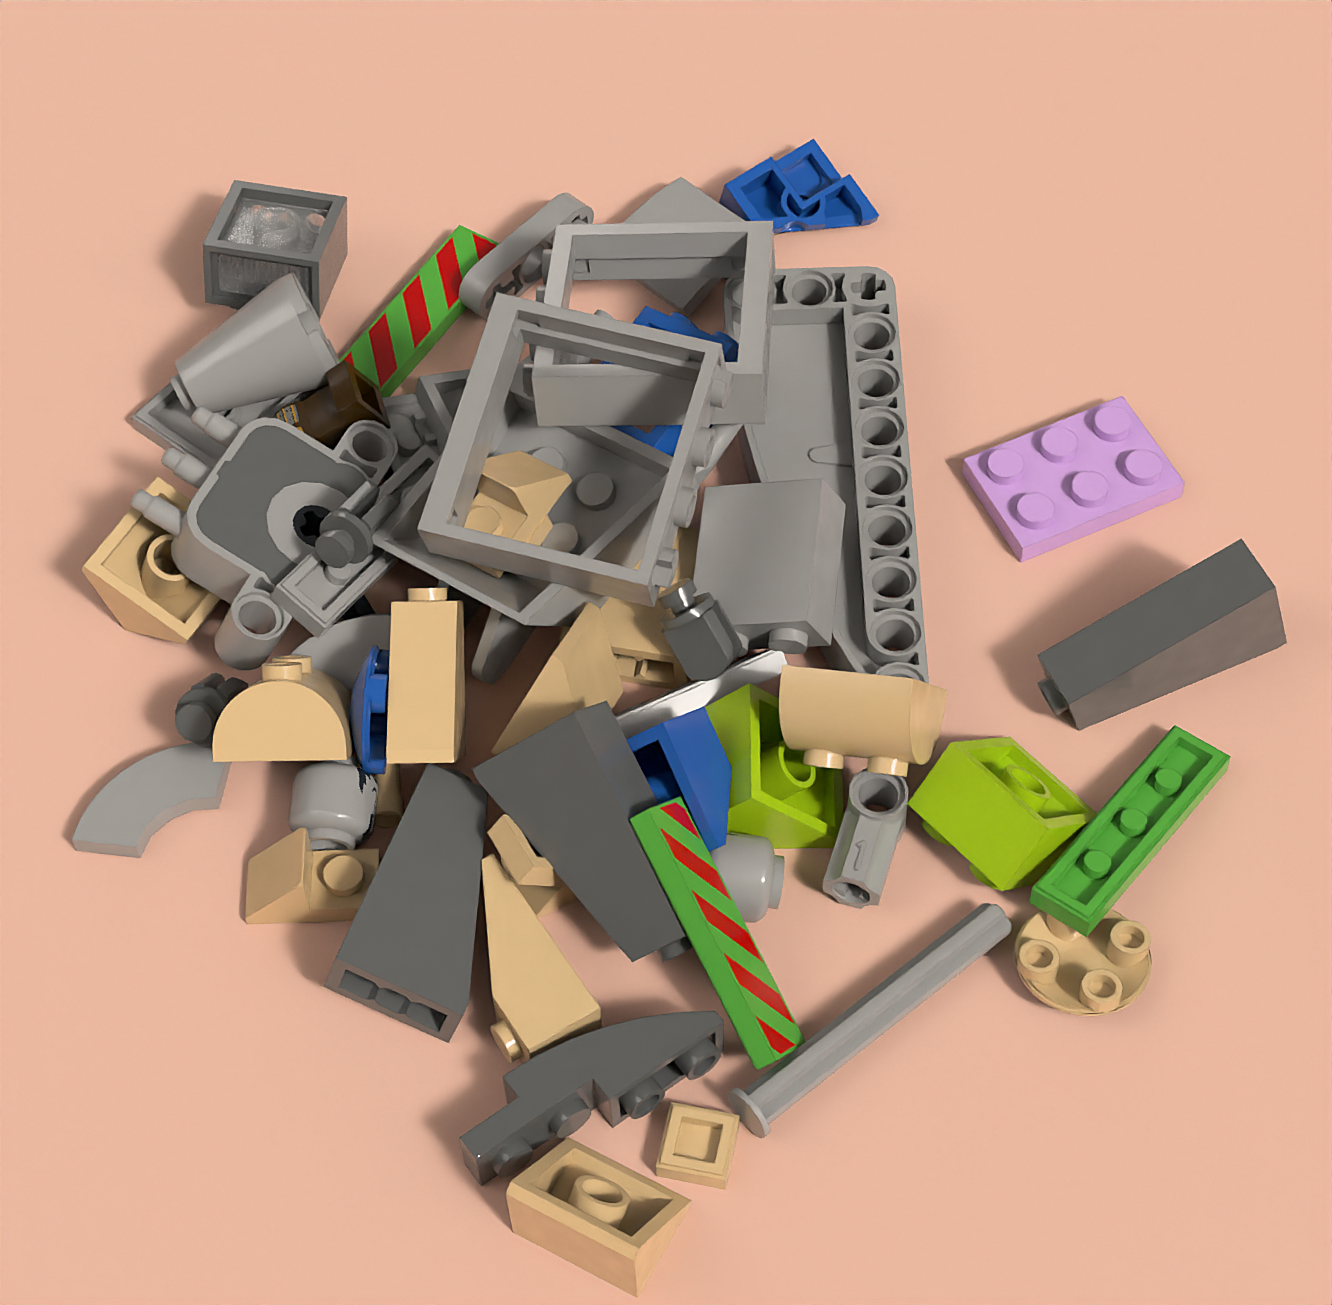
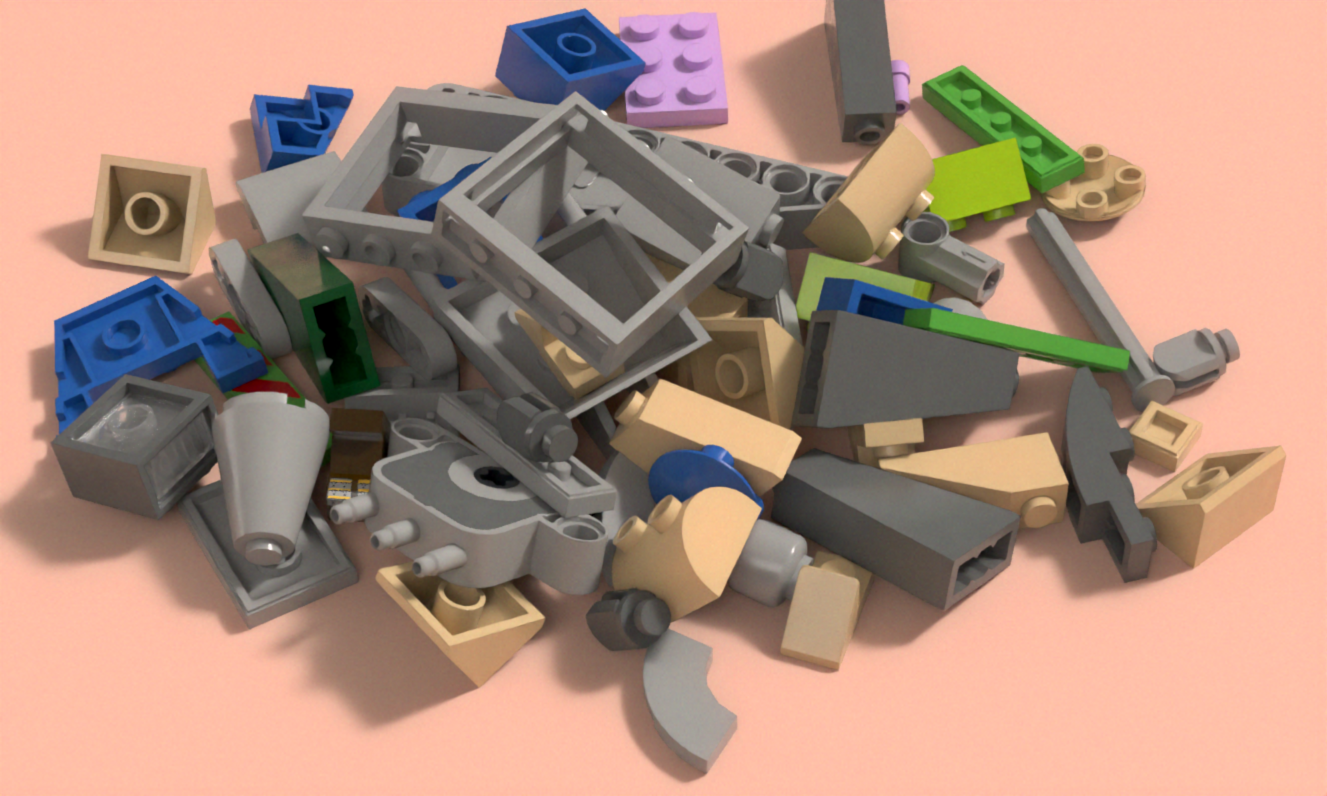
camera: 70 degrees left, 10 degrees down
(433, 194) = (141, 335): none -> blue wing
(459, 300) = (319, 316): none -> dark green slope
(596, 136) = (151, 214): none -> tan slope
(825, 1142) = (1195, 357): none -> light grey arm
(991, 375) = (566, 54): none -> blue slope
(1175, 699) = (901, 80): none -> lavender piece

